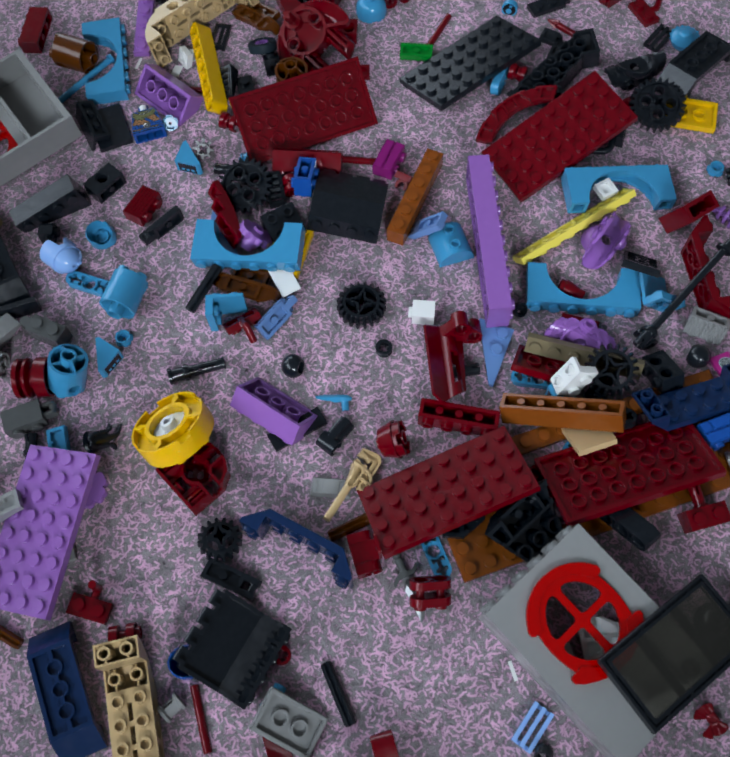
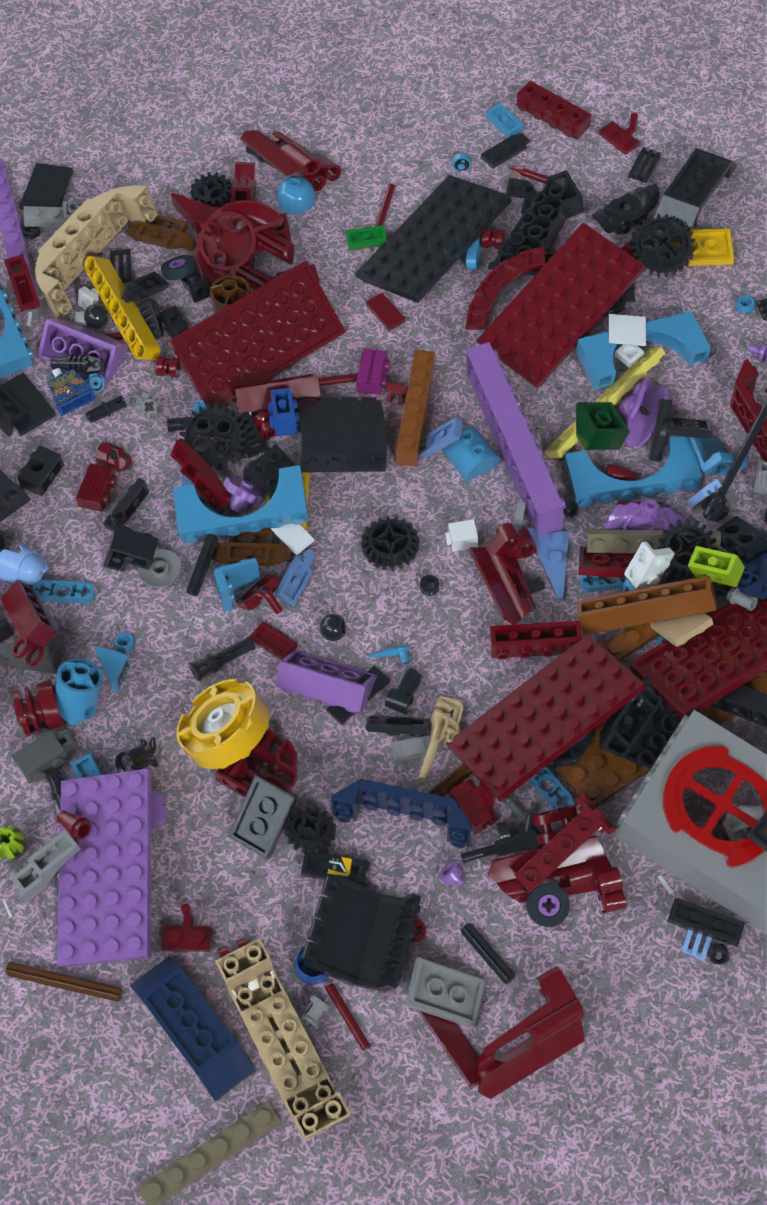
camera: 15 degrees left, 5 degrees down
(24, 488) = (75, 825): none -> dark red cone
(48, 303) = (29, 620): none -> dark red hinge
(100, 235) = (56, 532): dark azure hair -> none
(123, 293) = (111, 590): dark azure cylinder -> none
(136, 29) = (22, 283): none -> dark red slope
(149, 261) = (130, 548): none -> black brick
(161, 104) = (79, 363): none -> black hinge
(163, 184) = (113, 456): none -> dark red rock
(169, 145) = (105, 409): none -> black axle
(169, 276) = (164, 560): none -> light grey dish
(182, 518) = (262, 816): none -> tile
(187, 70) = (96, 316): none -> black piece
(187, 160) = (133, 423): dark azure slope -> none
(230, 55) = (144, 287): none -> black hinge
(234, 579) = (339, 866): none -> sticker
(242, 365) = (273, 641): none -> dark red tile
(321, 464) = (397, 725): none -> black hinge
(327, 611) = (452, 874): none -> medium lavender tile
(383, 595) = (507, 844): none -> black piece
(392, 440) = (470, 679): dark red cone -> none
(397, 654) = (555, 915): none -> black bush
(414, 113) = (385, 311): none -> dark red tile
(440, 634) = (580, 873): none -> dark red panel
(461, 599) = (564, 843): none -> dark red bracket
(475, 306) = (519, 515): none -> light grey tile
(540, 720) = (706, 922): none -> black tile
(564, 245) = (600, 426): none -> dark green slope
(608, 168) = (627, 330): none -> white sticker
(615, 259) = (660, 430): none -> black axle
(634, 393) = (719, 565): none -> lime brick
(639, 323) = (704, 493): none -> light blue tile
(645, 424) = (744, 600): none -> light grey pin
(683, 36) = (672, 159): dark azure piece -> none
(689, 212) = (727, 359): dark red brick -> none

